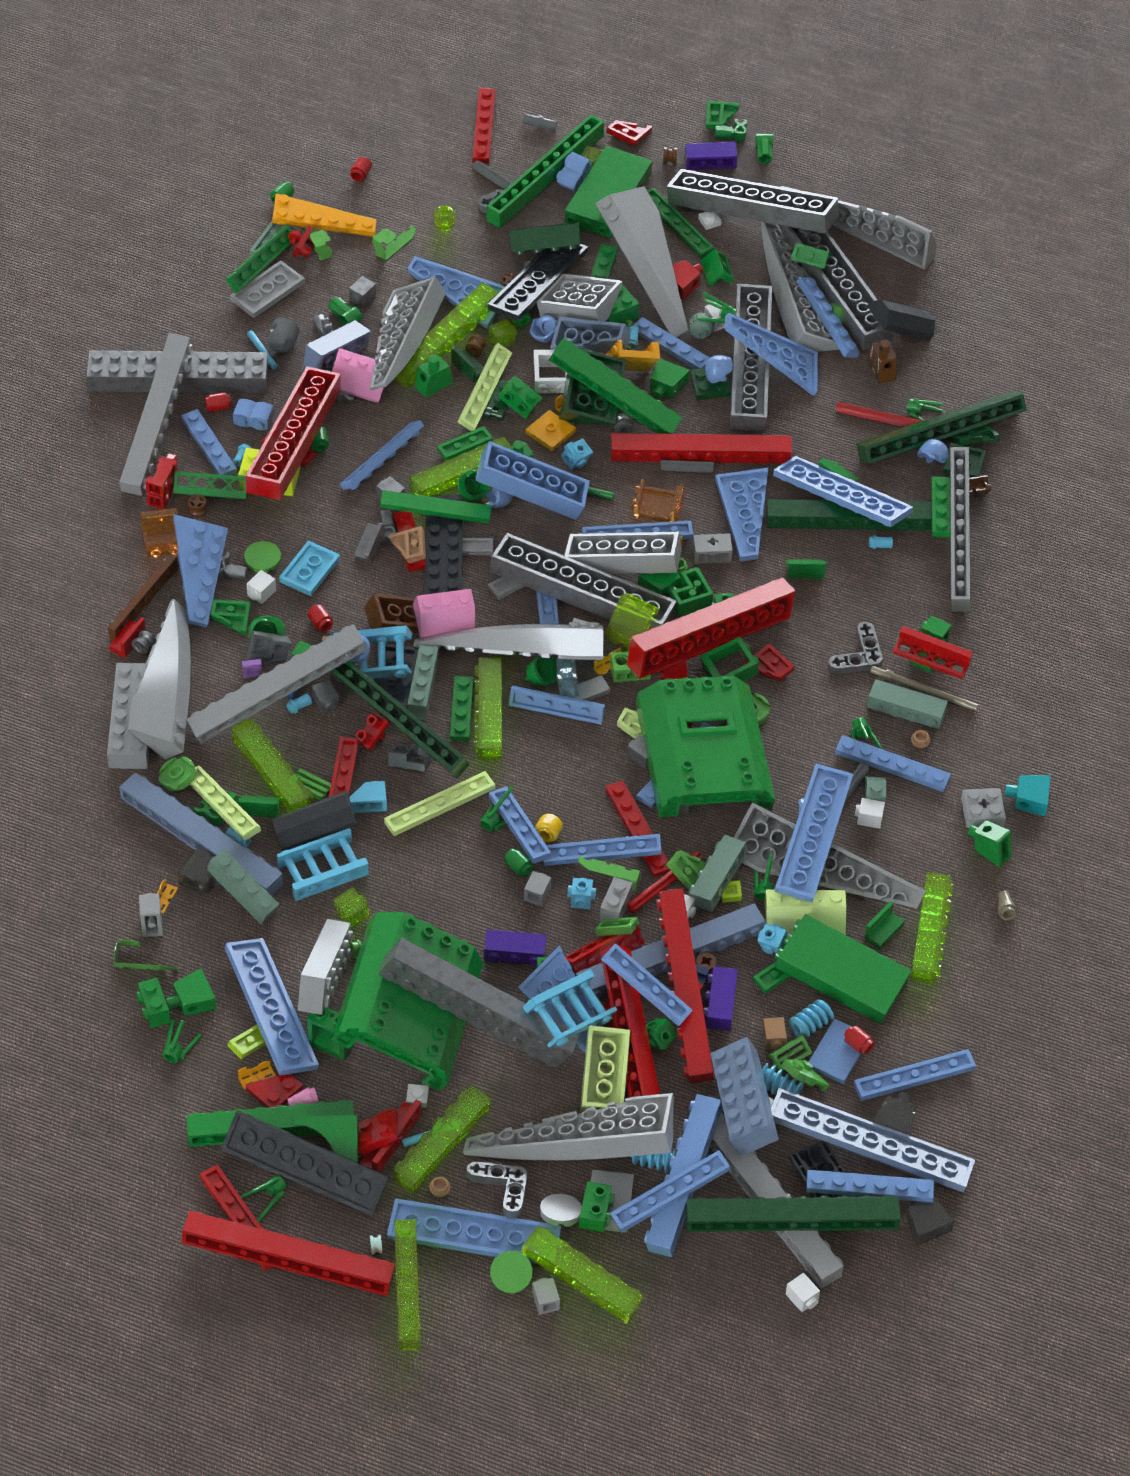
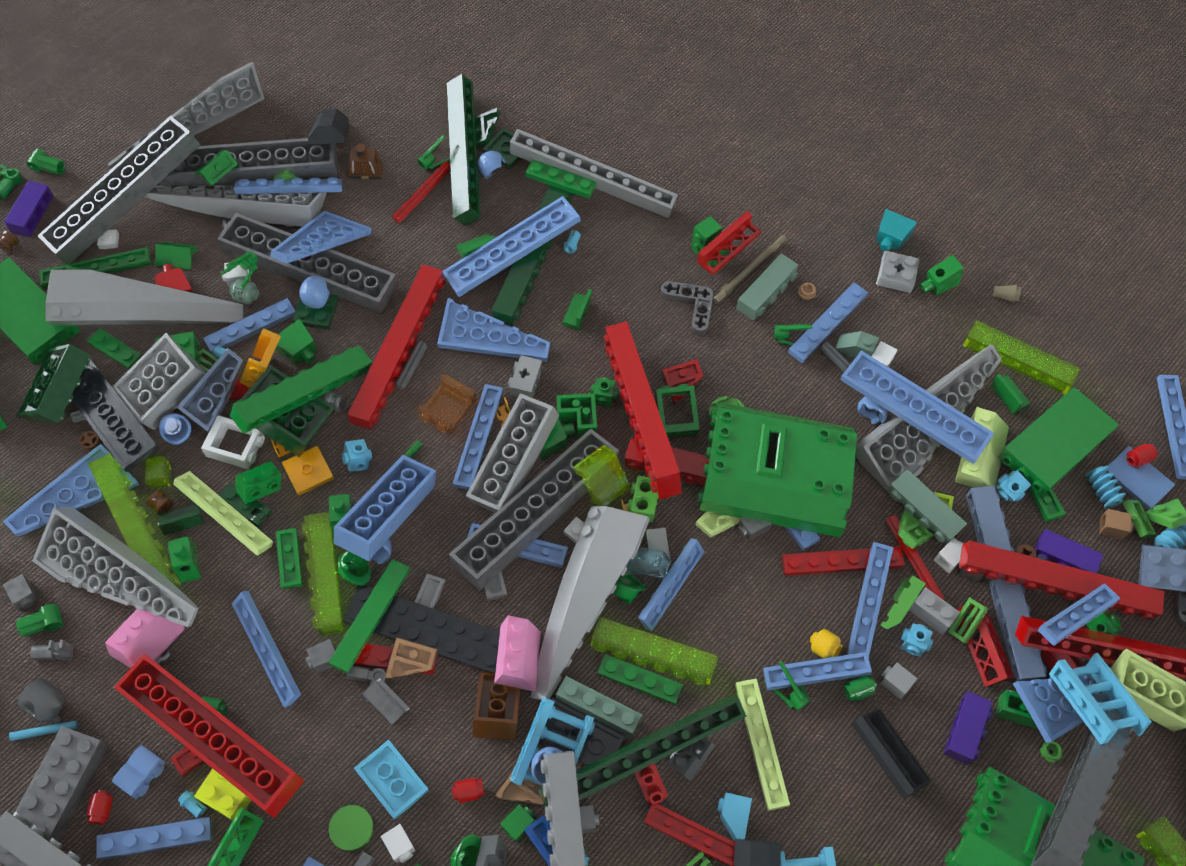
camera: 70 degrees left, 10 degrees up
(323, 351) = (90, 649): wedge -> none
(467, 893) = (891, 752): none -> black piece
(760, 889) = (946, 474): green plant -> none

